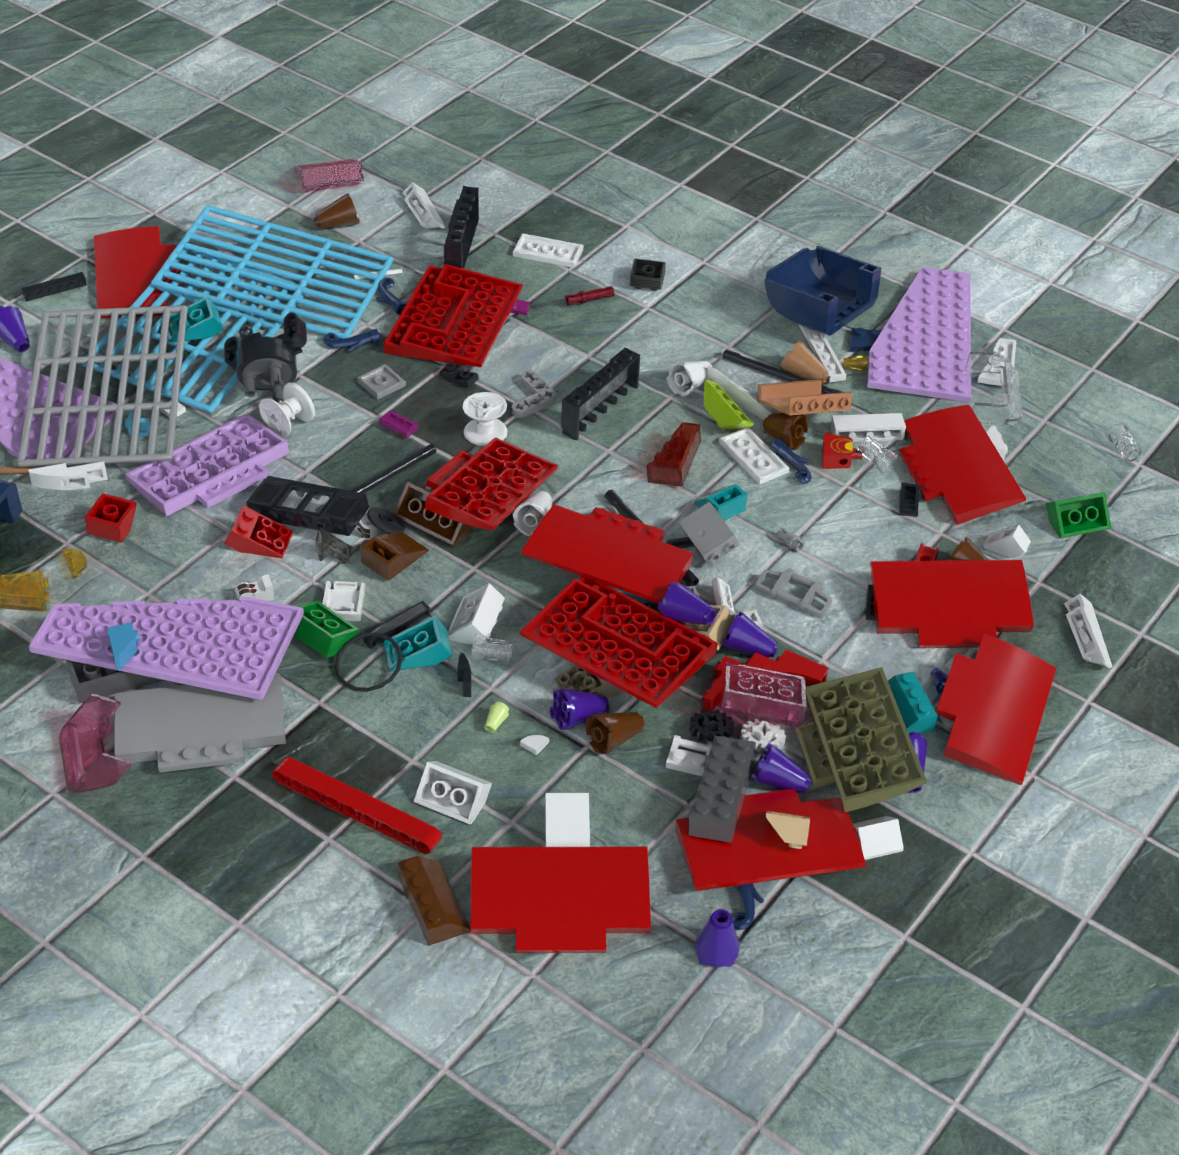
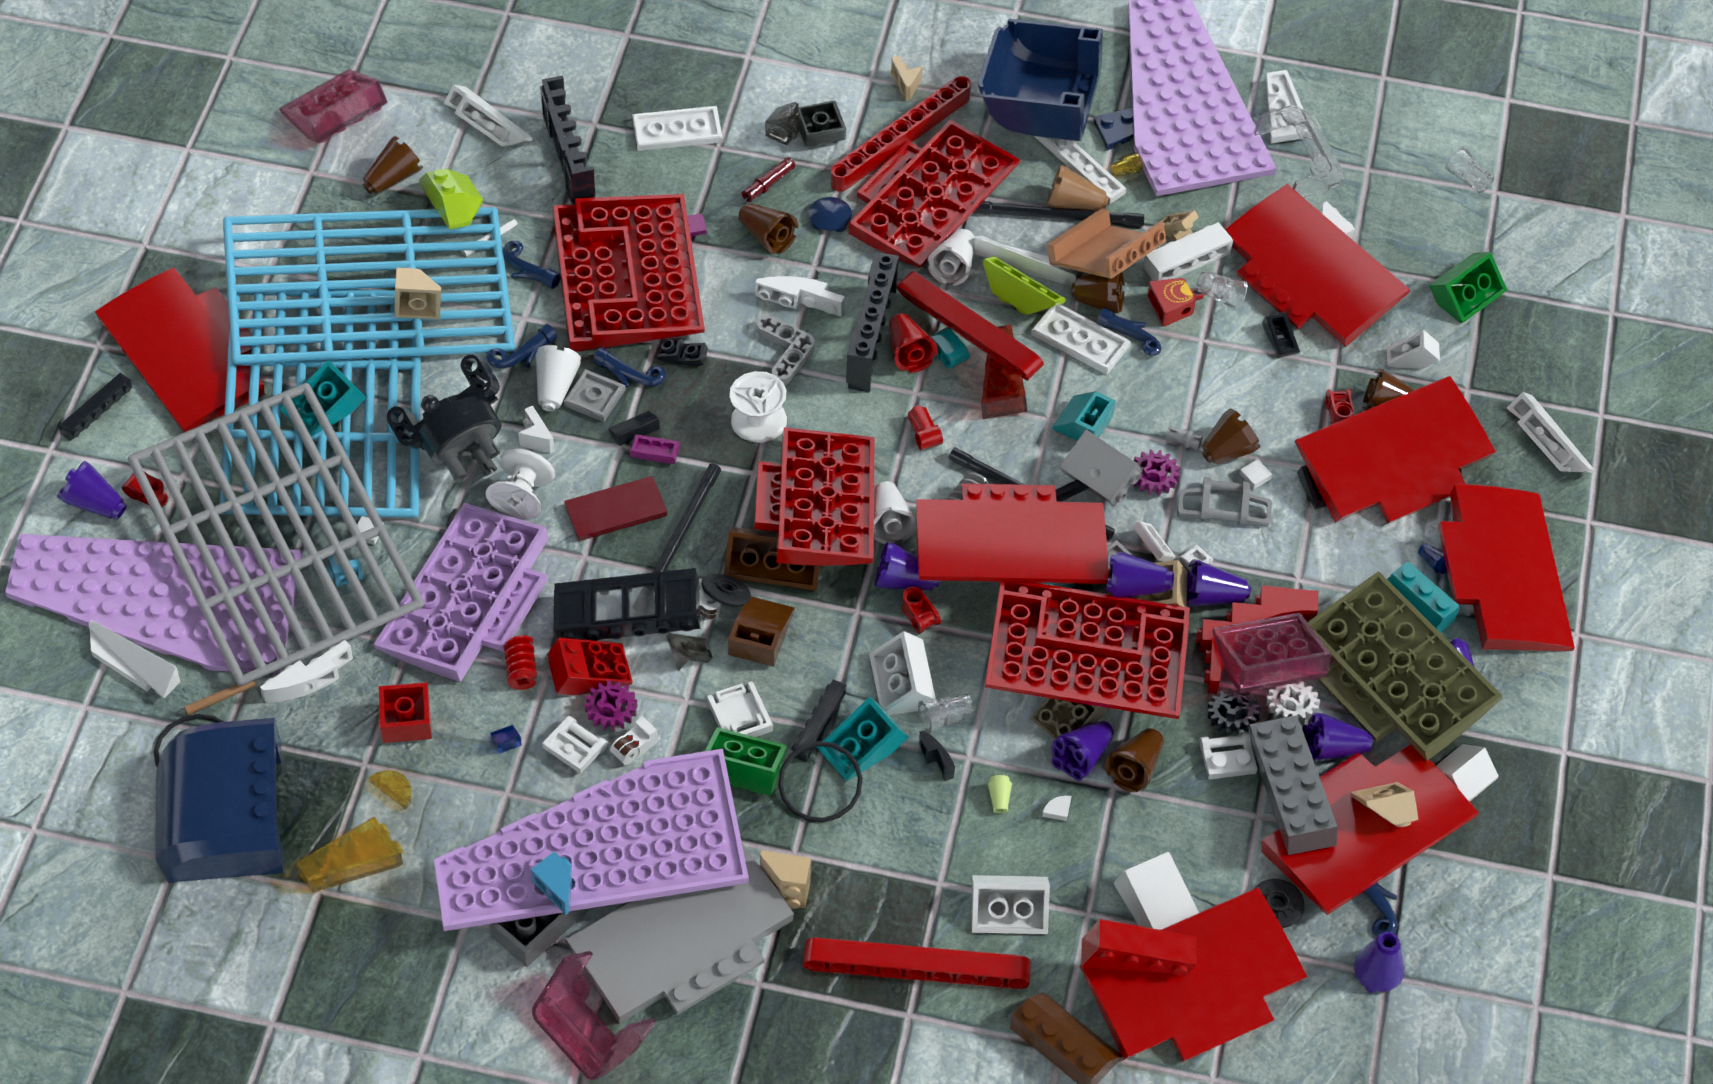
camera: 25 degrees left, 10 degrees up
(50, 339) = (134, 491): none -> red piece
(170, 560) = (506, 739): none -> clear blue slope
(208, 580) = (570, 749): none -> white plate
(212, 516) = (520, 662): none -> red piece
(255, 563) = (610, 707): none -> magenta gear
(293, 280) = (416, 295): none -> tan slope
(299, 711) = (789, 875): none -> tan slope
(322, 389) = (536, 434): none -> white slope
(347, 450) = (615, 508): none -> dark red tile
(359, 358) = (554, 375): none -> white cone
(366, 239) = (452, 196): none -> lime wedge
(400, 408) = (640, 425): none -> black slope
(408, 370) = (622, 371): none -> dark blue plant
(511, 549) = (900, 570): none -> dark purple cone
(516, 579) = (922, 613): none -> red piece
(518, 849) = (1138, 949): none -> red wedge
(562, 363) = (792, 291): none -> white slope
(570, 321) = (769, 226): none -> reddish brown cone
(598, 471) = (926, 433): none -> red piece
(620, 266) = (783, 123): none -> clear smoke slope
(620, 328) = (830, 214): none -> dark blue dish
(620, 419) = (910, 344): none -> red cone
(649, 429) = (950, 348): none -> teal beam
(669, 416) = (970, 325): none -> red beam
(670, 860) = (1290, 896): none -> black wheel
(699, 296) = (907, 127): none -> red beam
(699, 334) = (928, 192): none -> red slope
(729, 267) = (906, 79): none -> tan slope
(753, 553) = (1155, 472): none -> magenta gear
(822, 549) = (1229, 439): none -> reddish brown cone
(832, 581) = (1256, 474): none -> white tile
(871, 407) = (1179, 224): none -> tan slope

